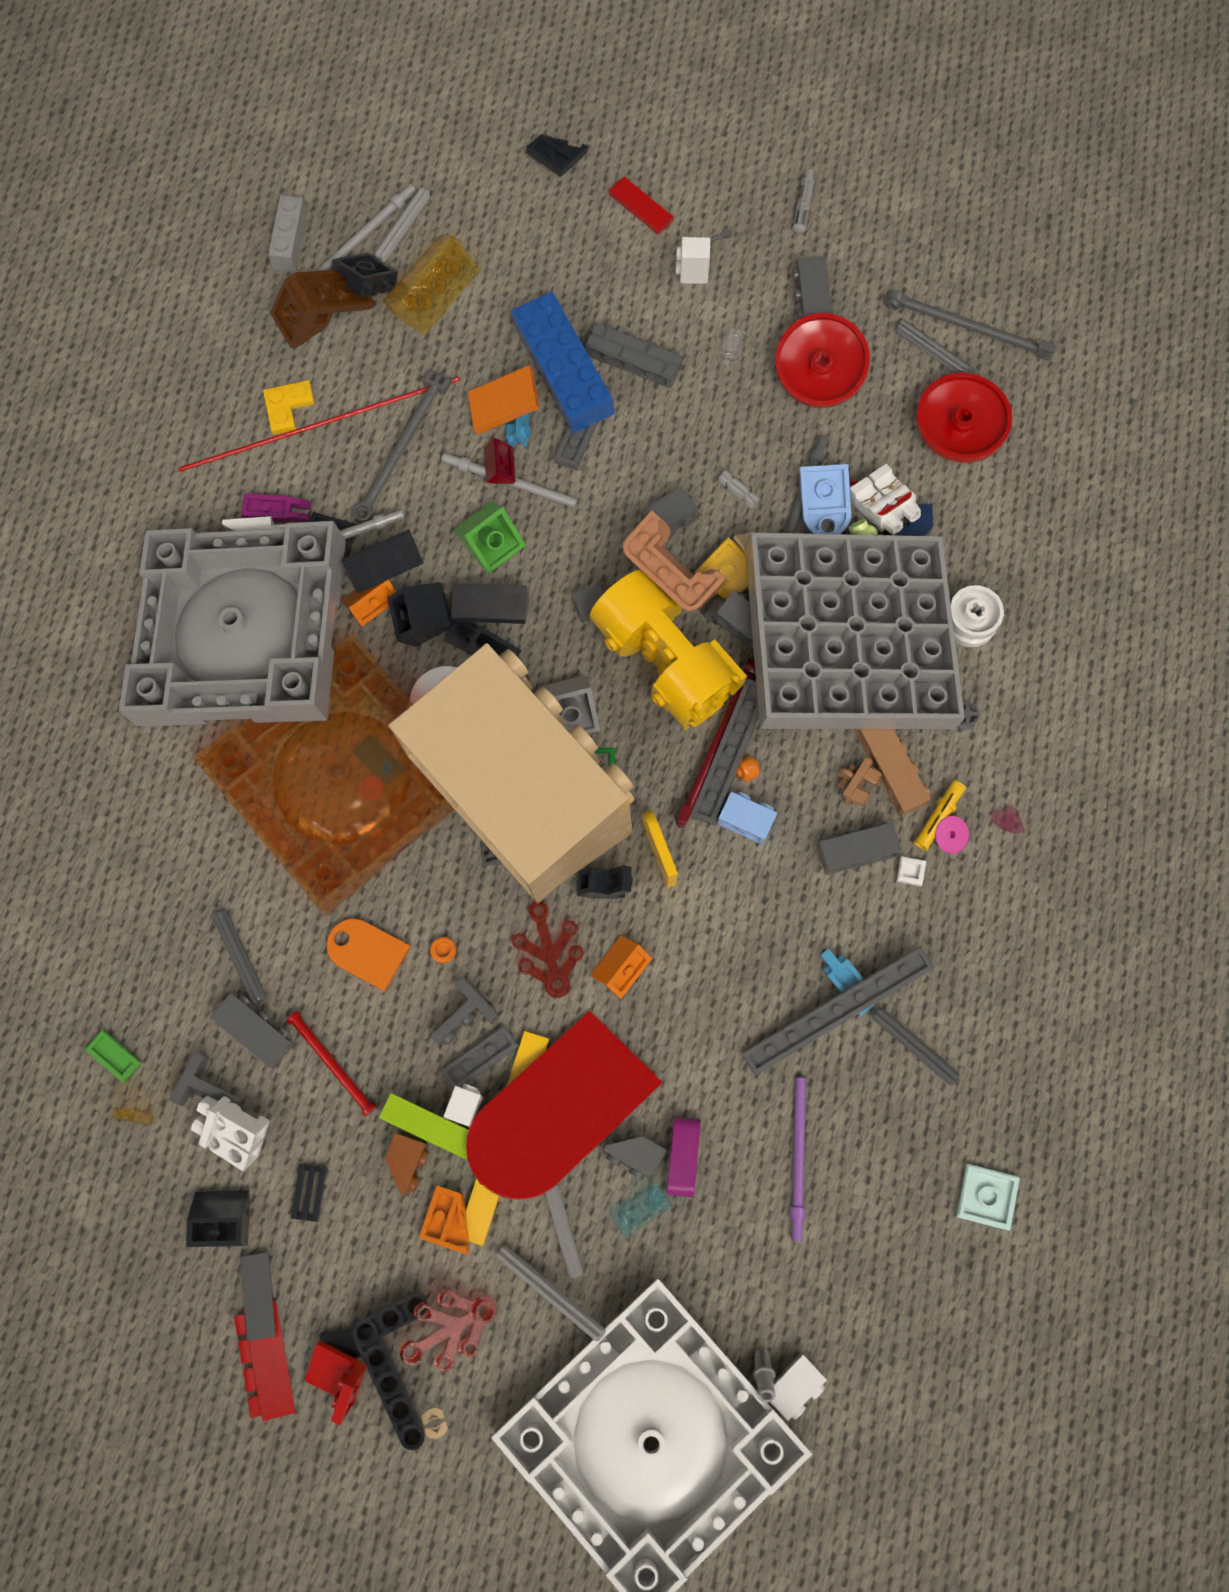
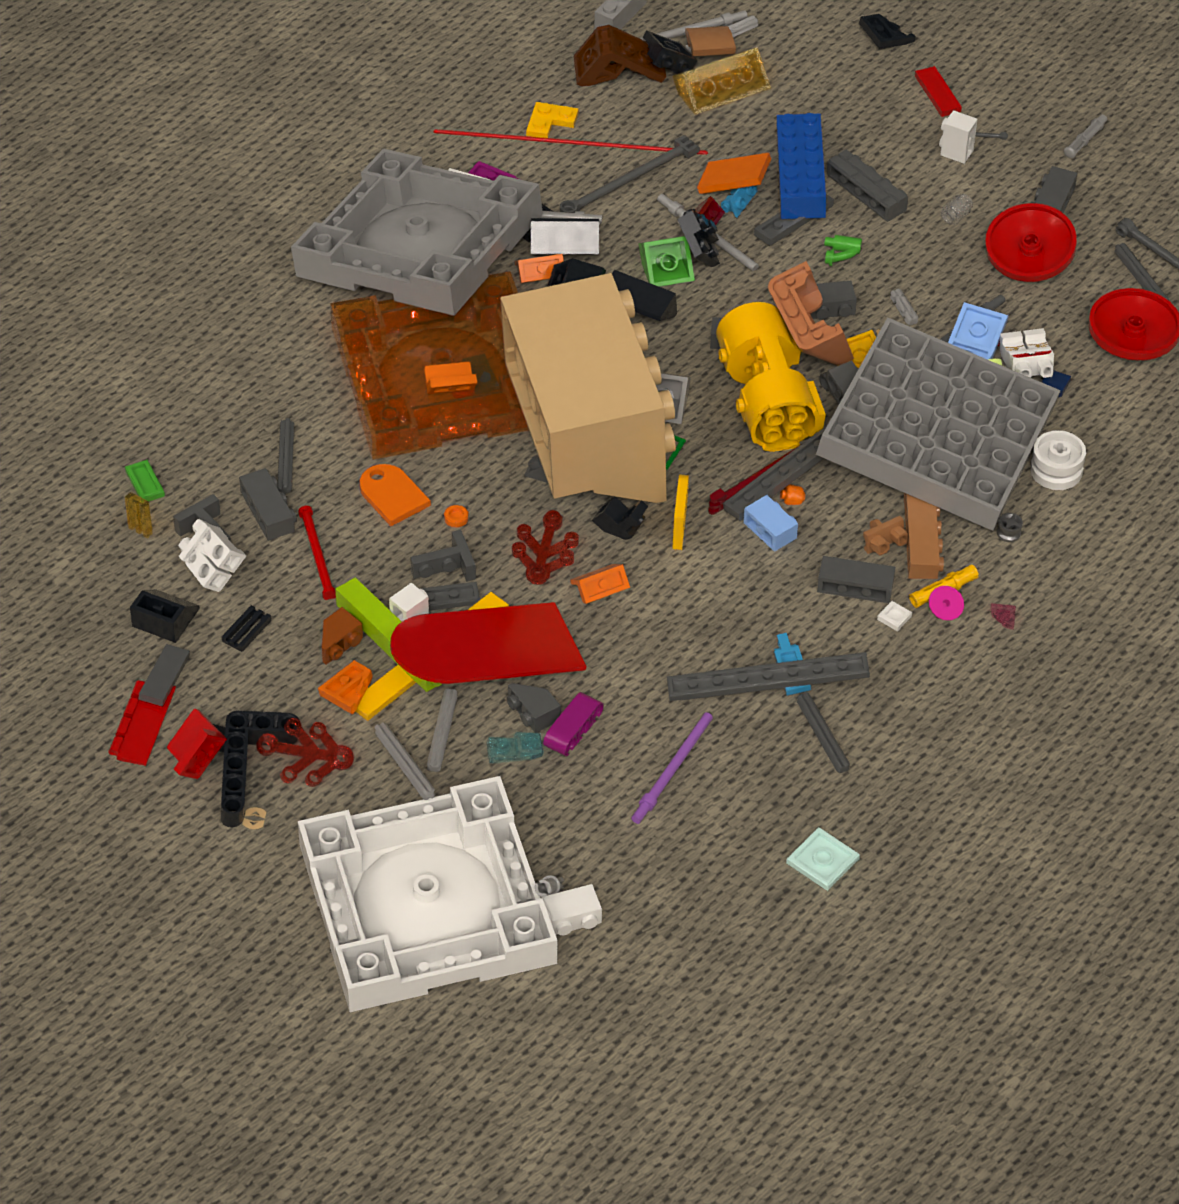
camera: 25 degrees right, 25 degrees down
(357, 792) = (449, 377): none -> orange panel
(398, 240) = (710, 41): none -> medium nougat slope
(508, 497) = (700, 236): none -> black plate
(644, 437) = (847, 245): none -> bright green plant

